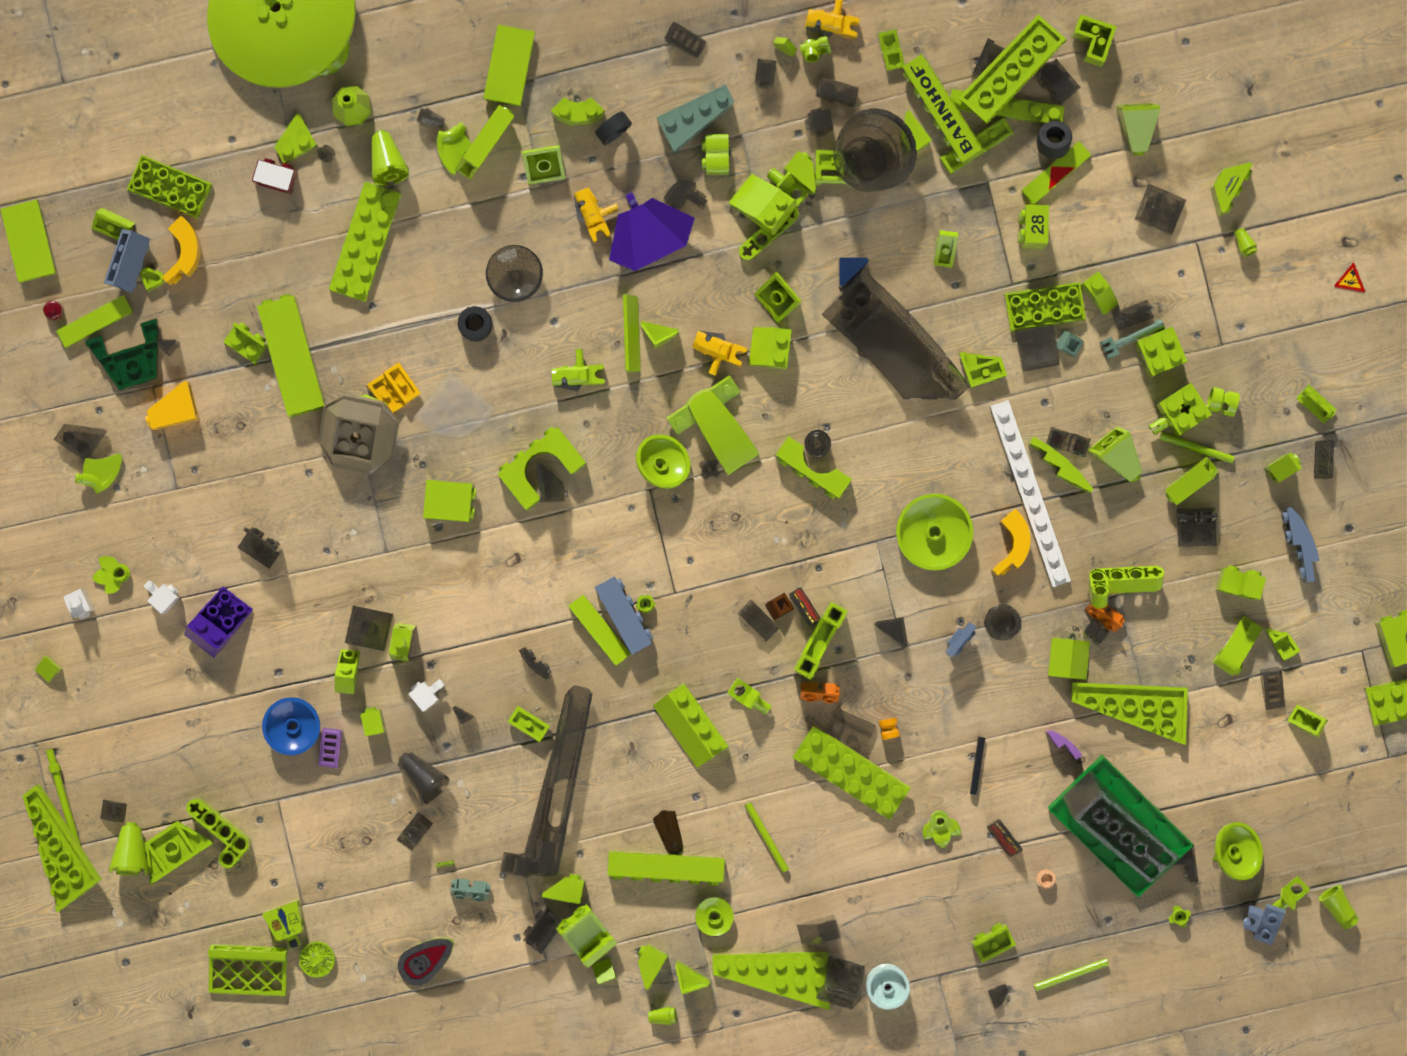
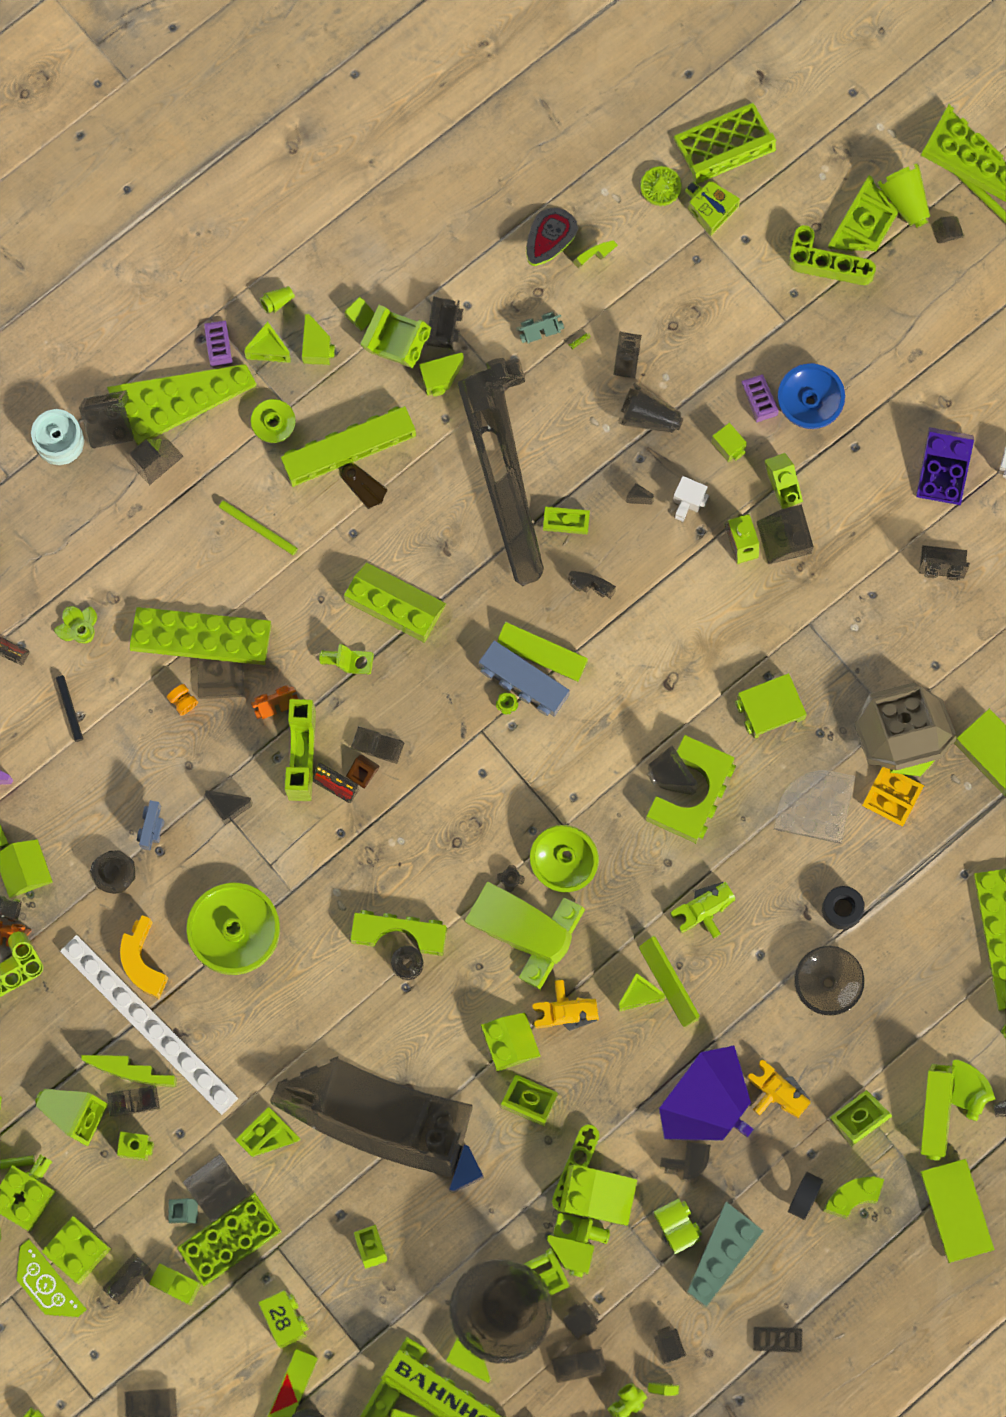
camera: 155 degrees right, 10 degrees down
(390, 927) = (600, 250): none -> lime slope
(731, 988) = (222, 359): none -> medium lavender slope
(1082, 407) = (135, 1146): none -> lime brick
(1157, 326) = (131, 1233): sand green hinge -> none
(1193, 341) = (45, 1284): none -> lime sticker

